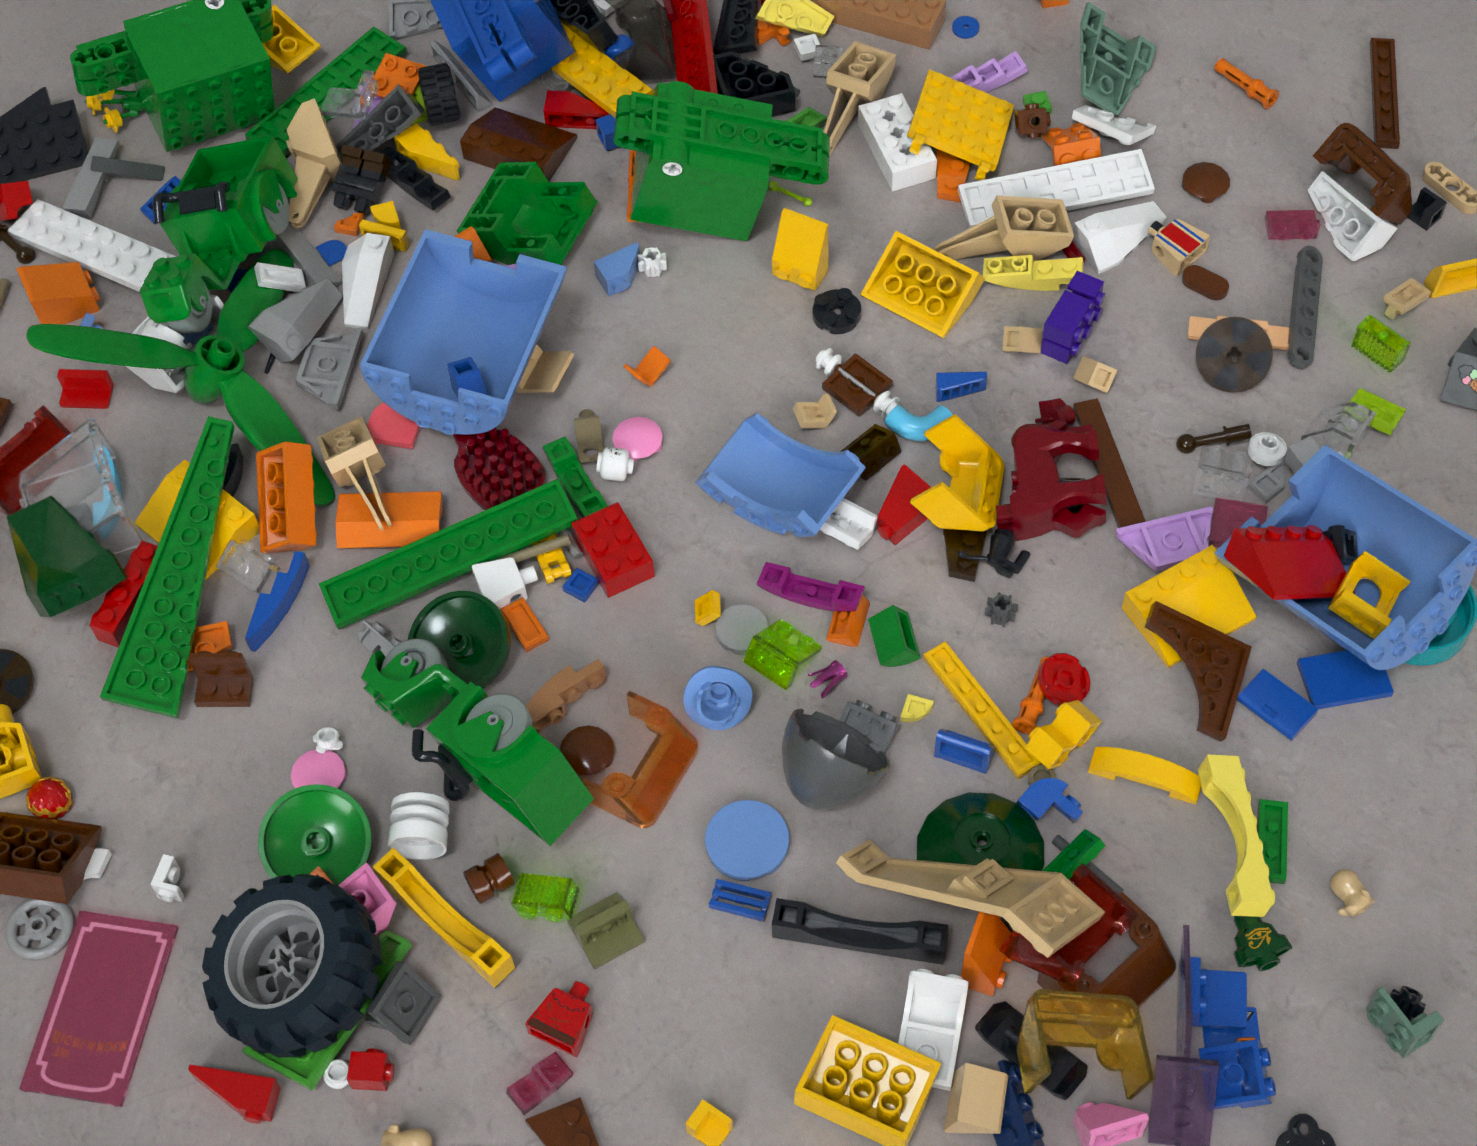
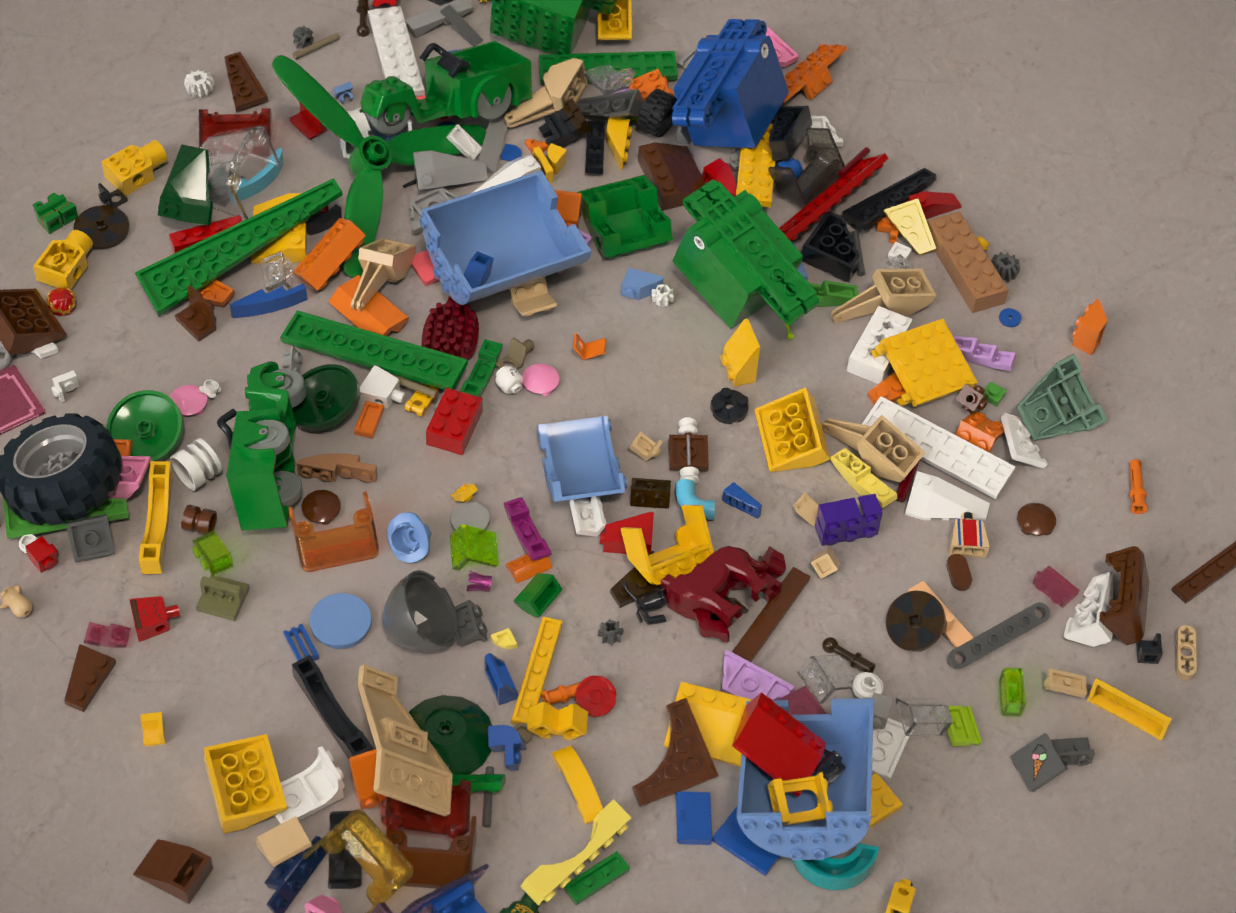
camera: 40 degrees right, 5 degrees down
(59, 292) = (350, 60): orange slope -> none
(580, 585) = (419, 425): blue tile -> none

